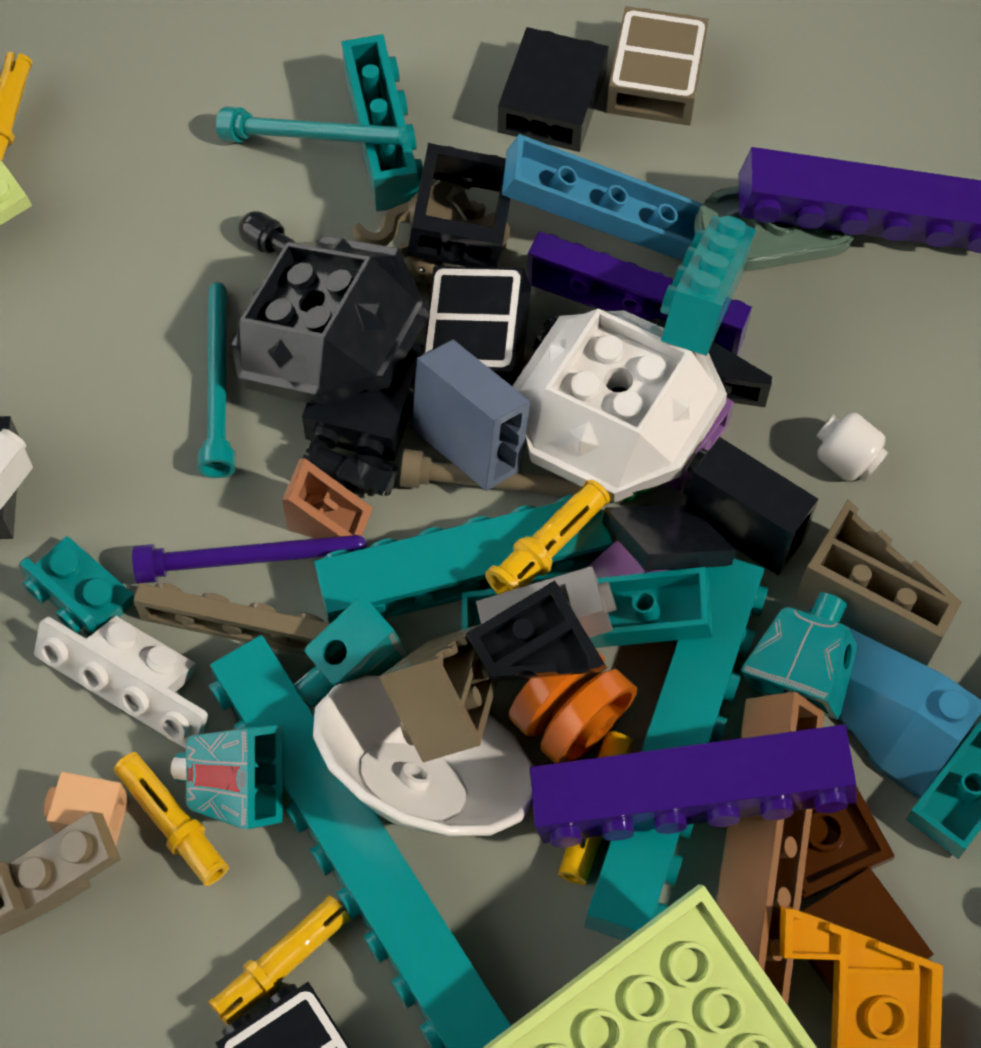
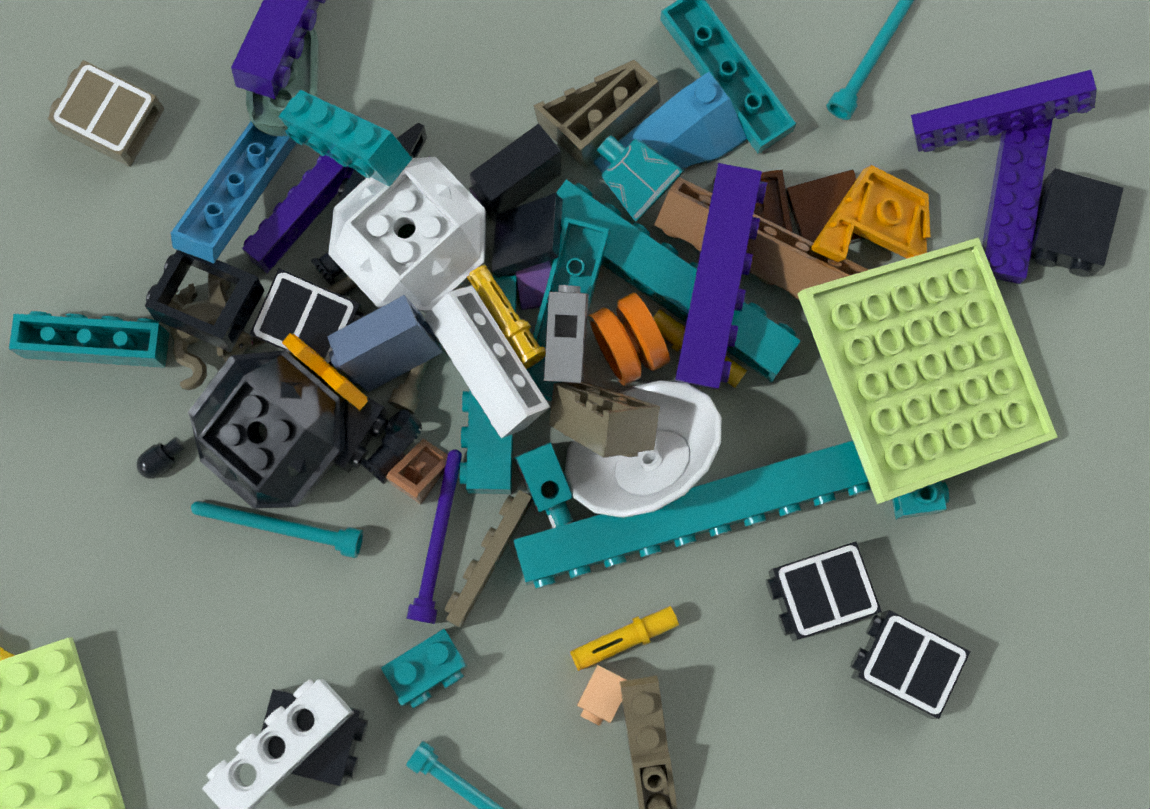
camera: 75 degrees left, 15 degrees up
(128, 672) = (505, 643): white bracket -> none
(234, 775) = (613, 584): teal torso -> none
(237, 124) = (48, 454): teal piece -> none
(267, 972) = (745, 586): yellow pin -> none
(398, 369) = (325, 370): none -> light orange tile
(479, 527) = (482, 359): none -> white brick
(536, 639) = (594, 345): black wing -> none
(552, 89) = (100, 198): black brick -> none
(851, 446) = (484, 89): white head -> none

